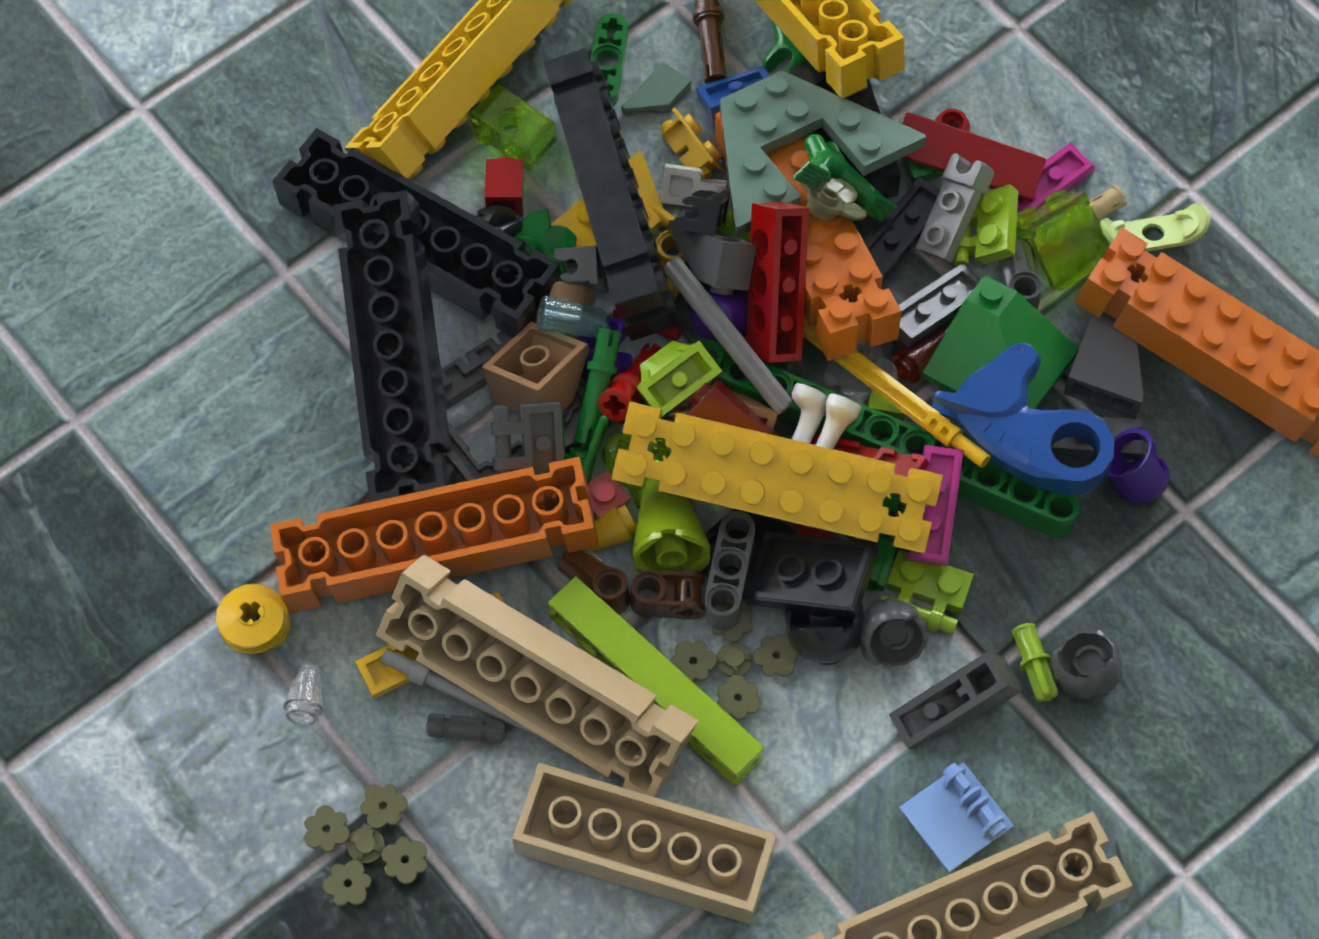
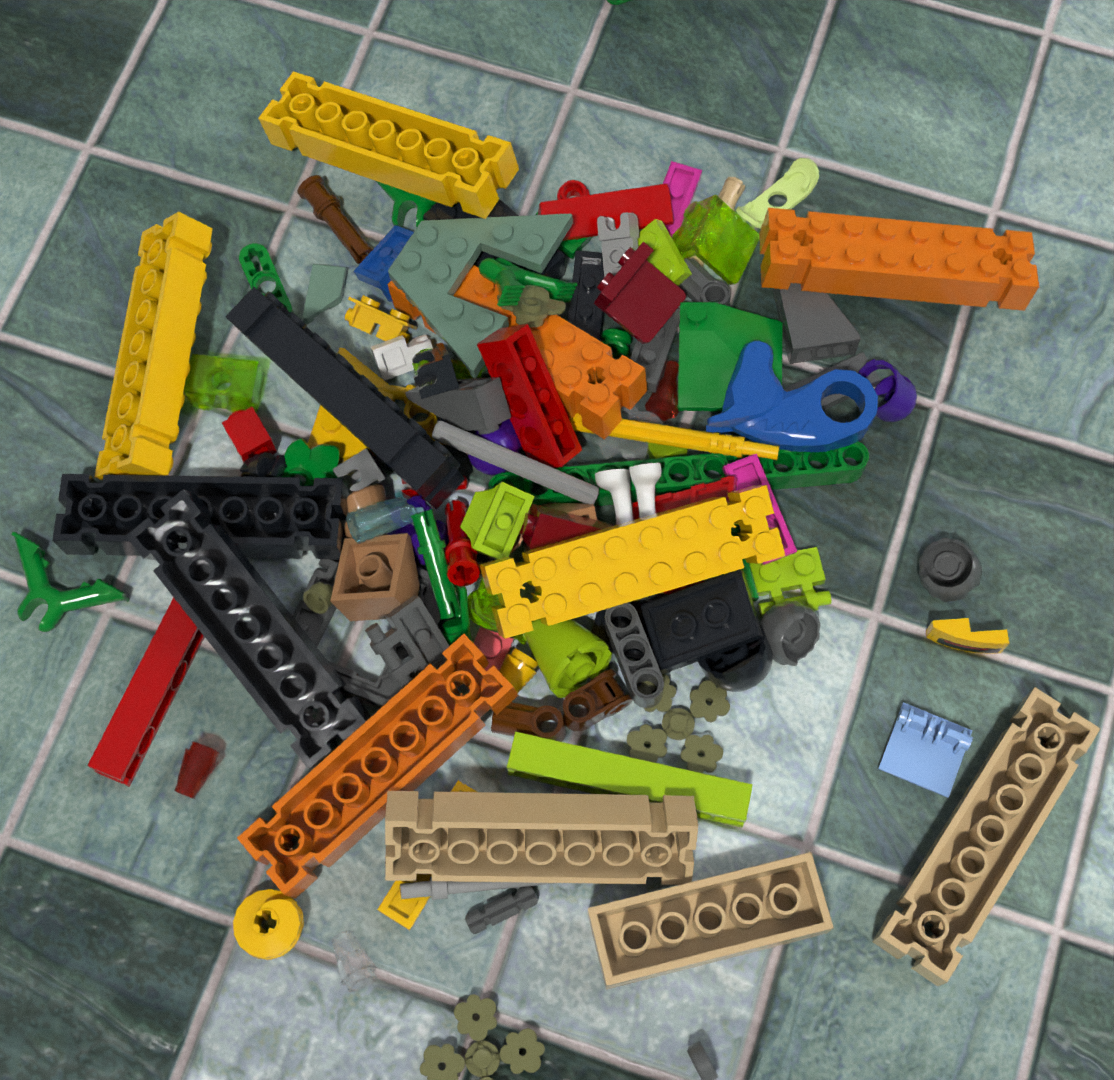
camera: 30 degrees left, 5 degrees up
(246, 240) = (58, 601): none -> green piece
(270, 367) = (147, 697): none -> red piece
(274, 451) = (196, 768): none -> clear red cone
(473, 359) = (318, 597): none -> olive hinge
(901, 282) = (618, 341): none -> green bush
(946, 245) = (639, 295): none -> dark red bracket
(956, 699) = (868, 658): dark grey slope -> none
(1035, 662) = (907, 591): lime axle -> none
(1054, 728) = (958, 635): none -> yellow slope

